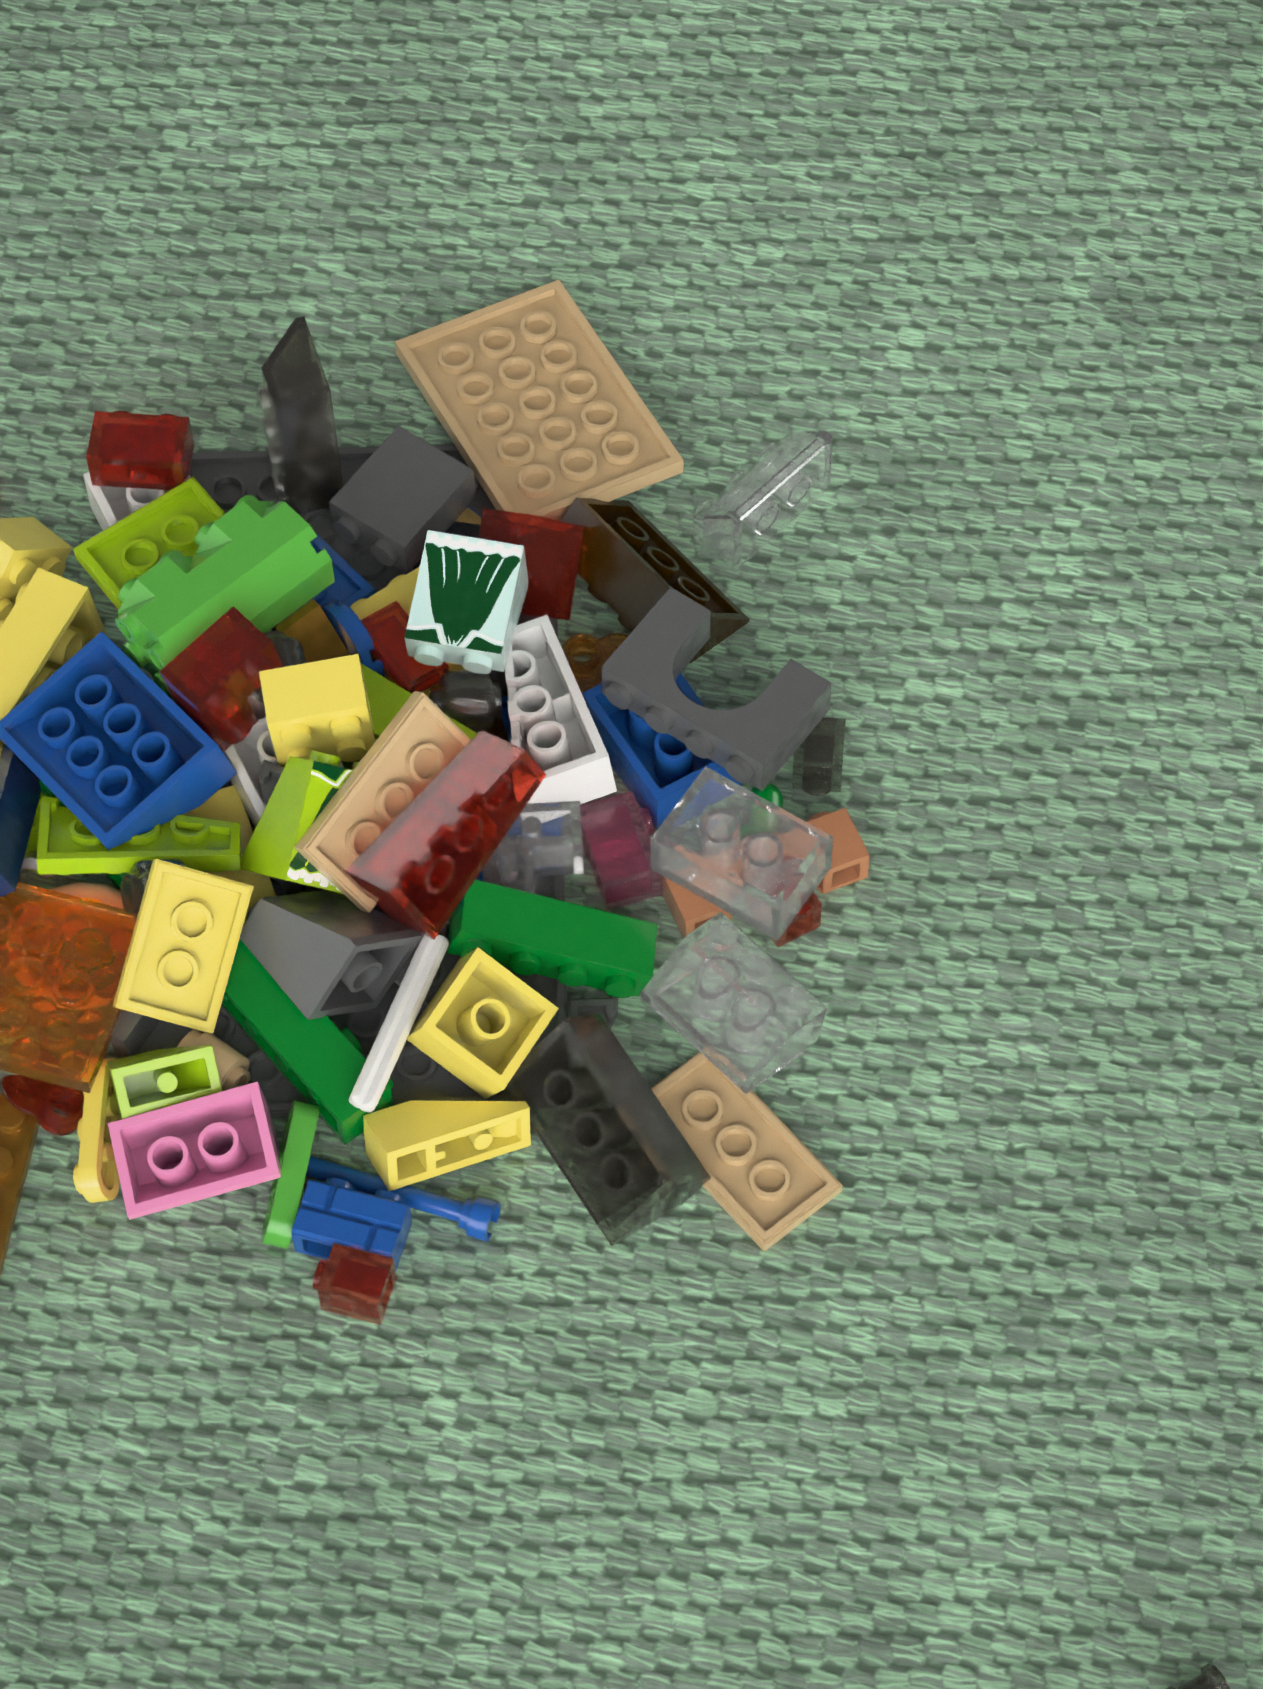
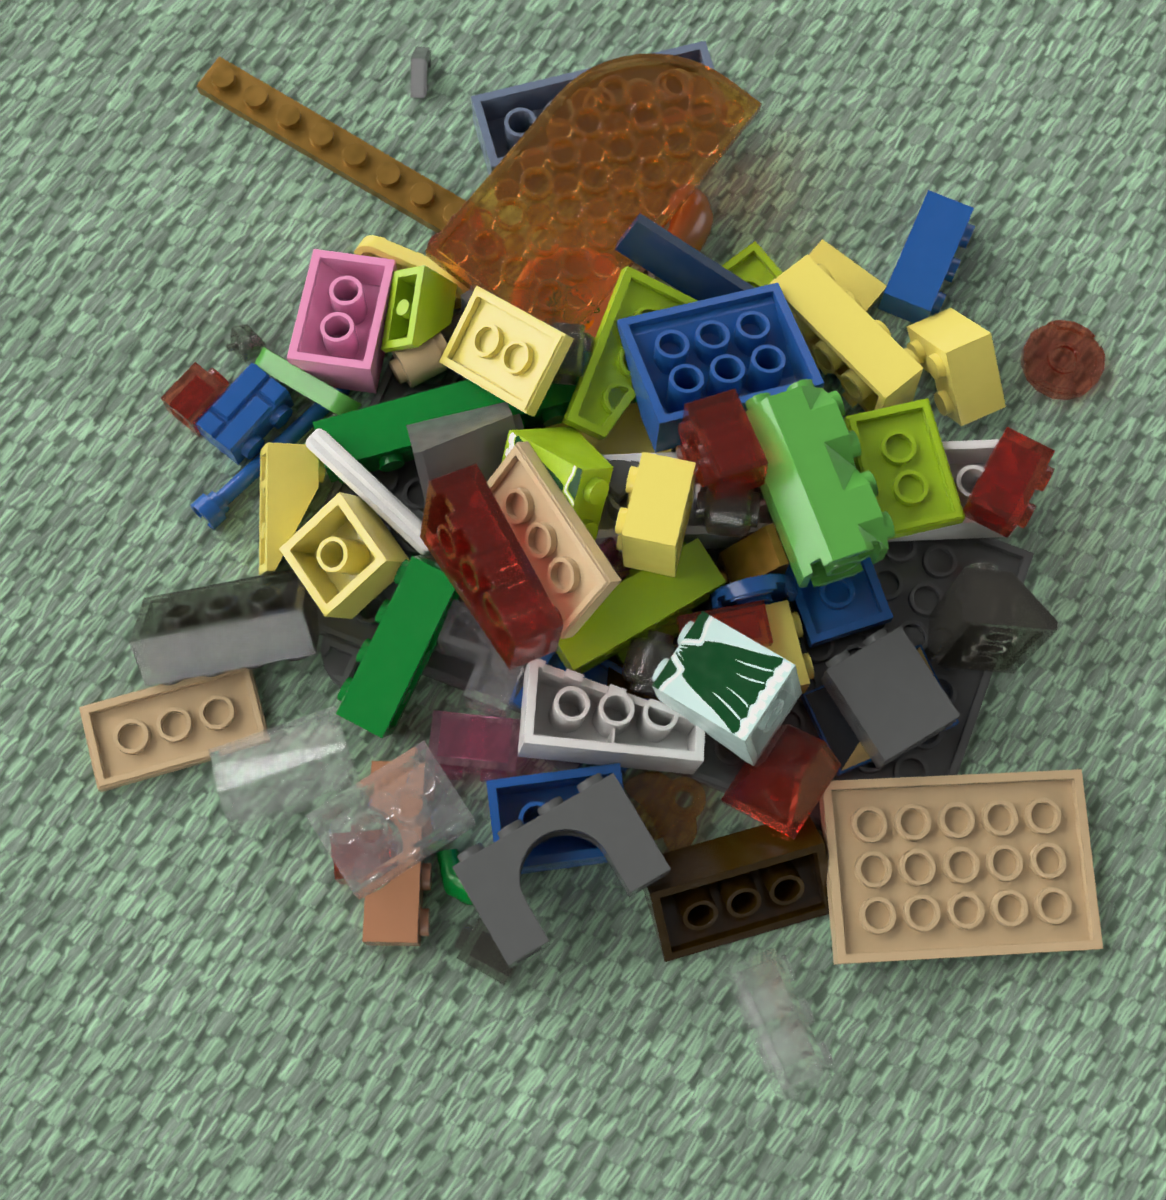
camera: 110 degrees right, 15 degrees up
(265, 1270) = (245, 342): none -> clear smoke piece

